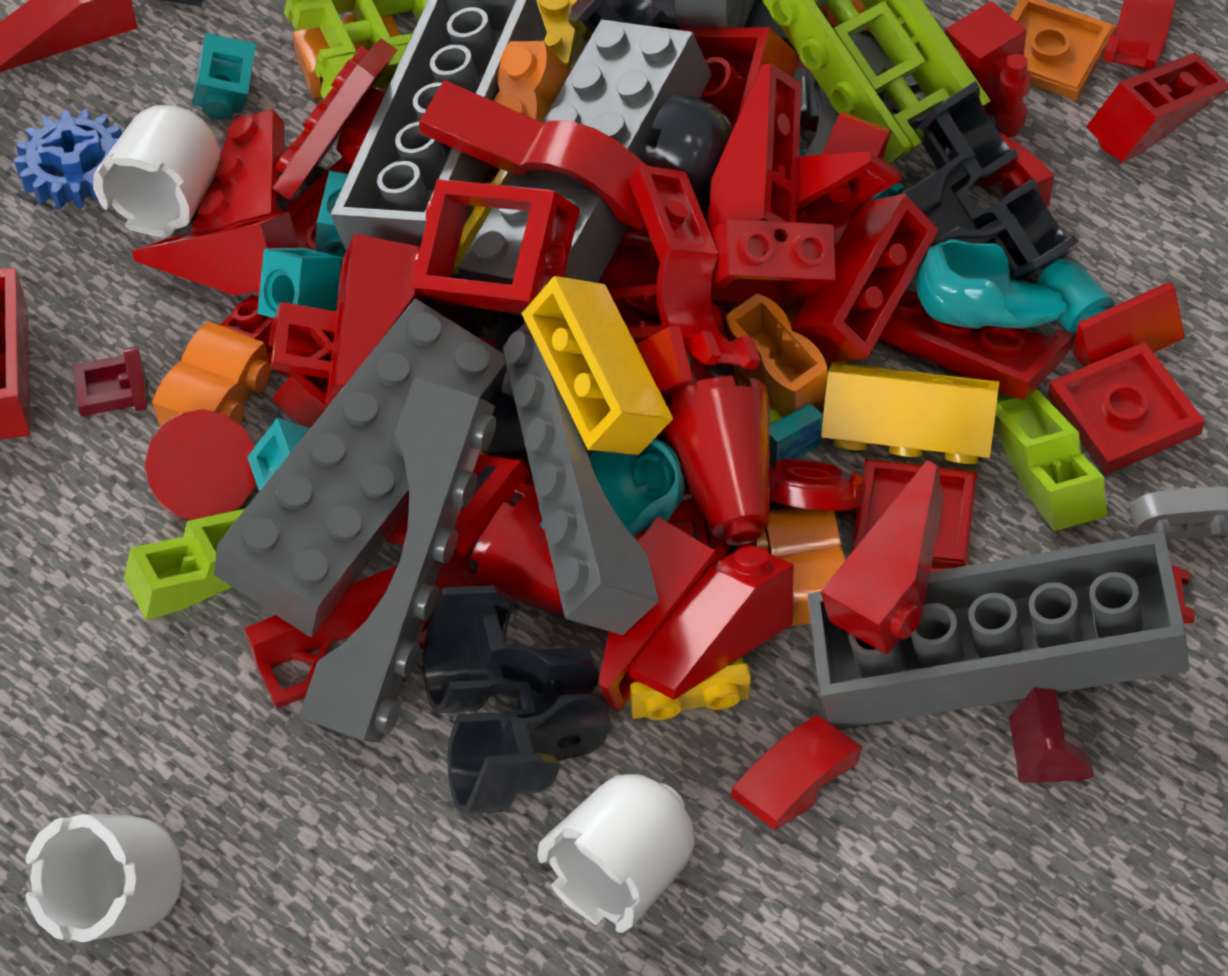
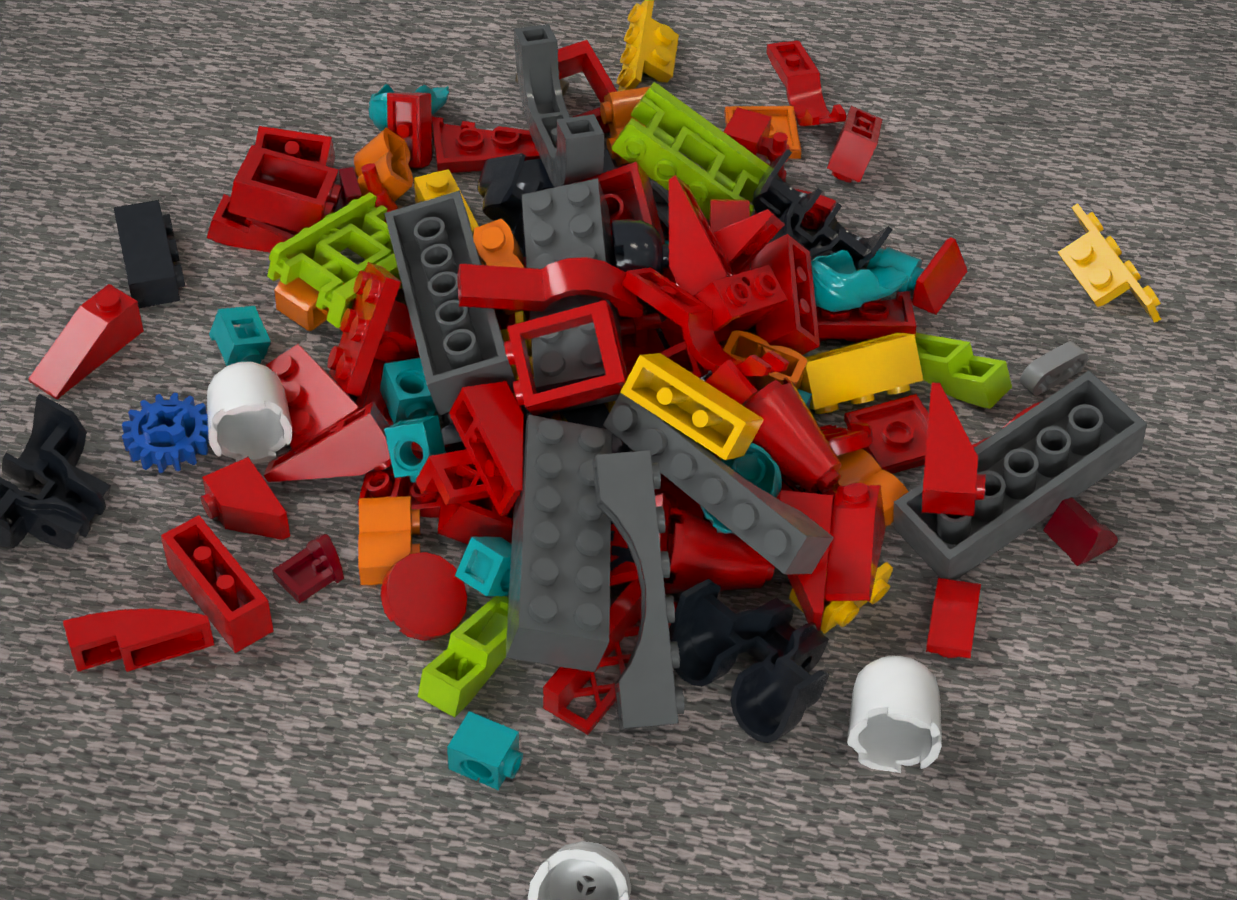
camera: 35 degrees left, 5 degrees down
(94, 271) = (244, 501): none -> red slope
(141, 671) = (484, 751): none -> teal brick
(1125, 407) = (972, 317): red plate -> none

